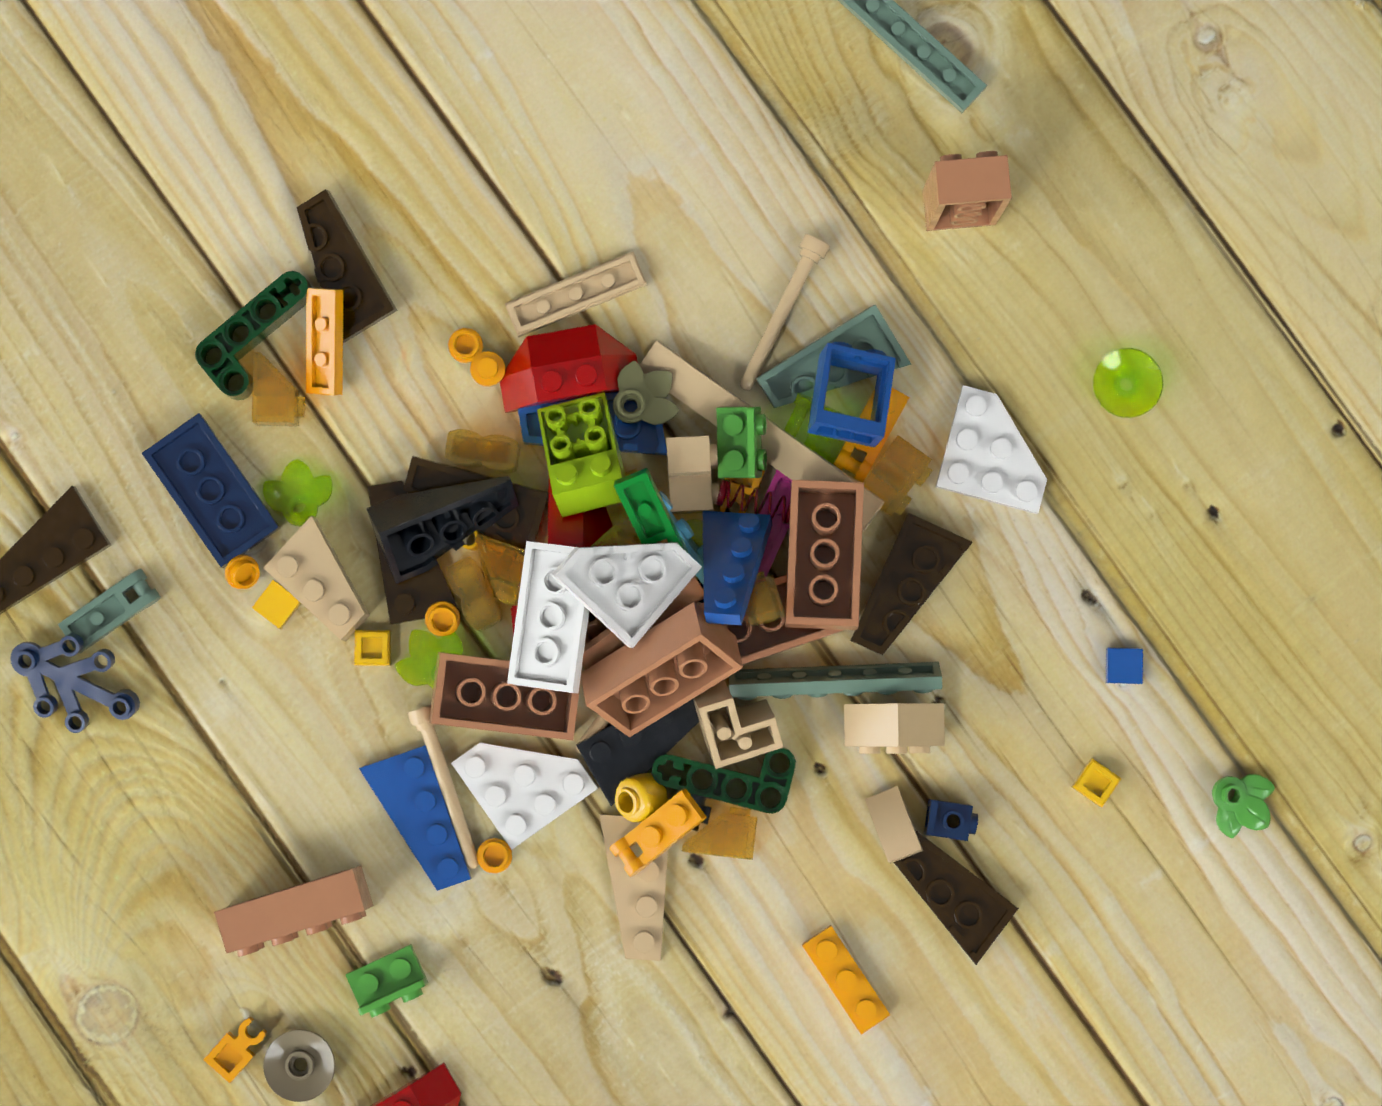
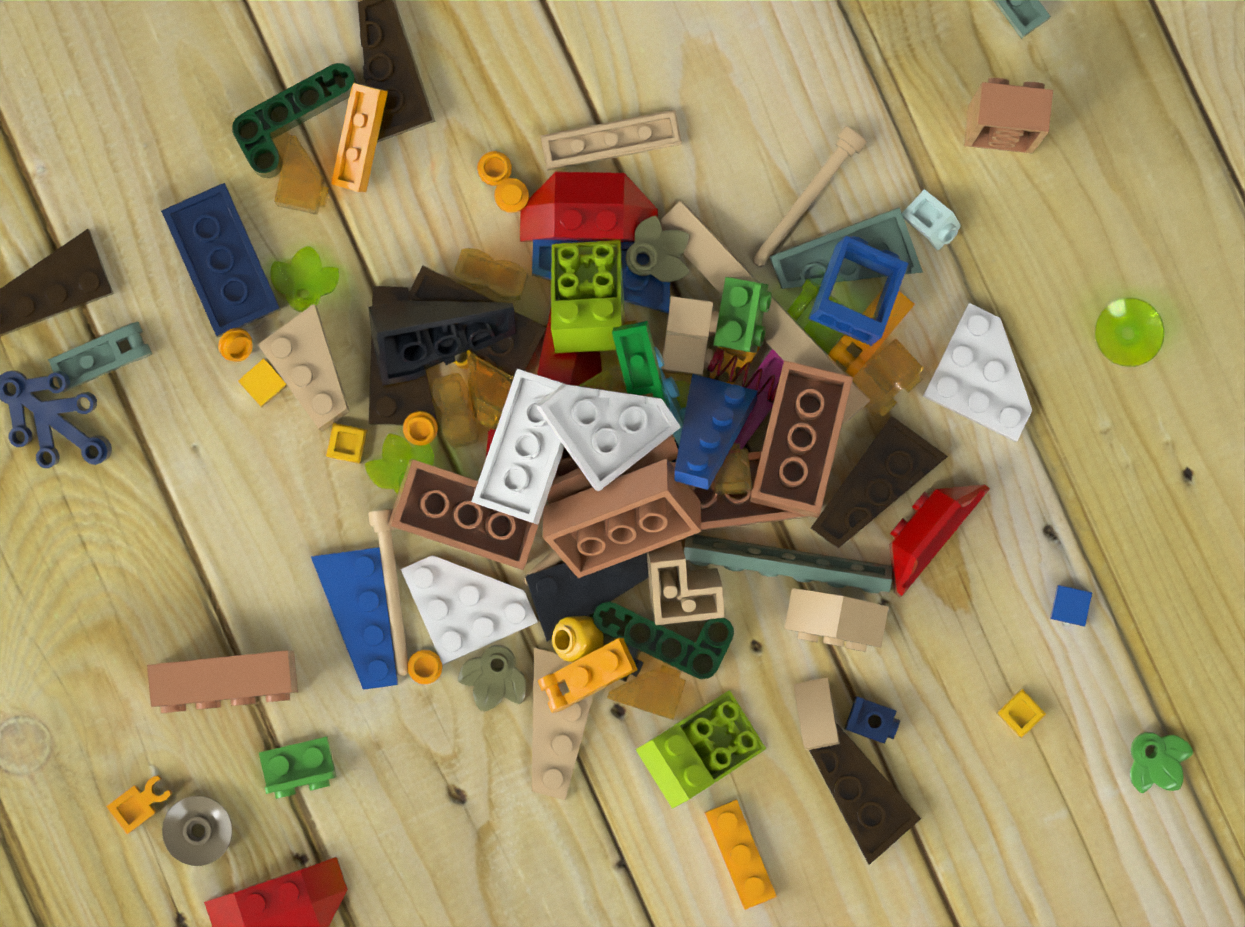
camera: 10 degrees right, 0 degrees up
(565, 858) = (493, 683): none -> olive plate
(785, 883) = (700, 749): none -> lime slope
(910, 310) = (932, 219): none -> light aqua bracket
(968, 619) = (928, 530): none -> red wedge

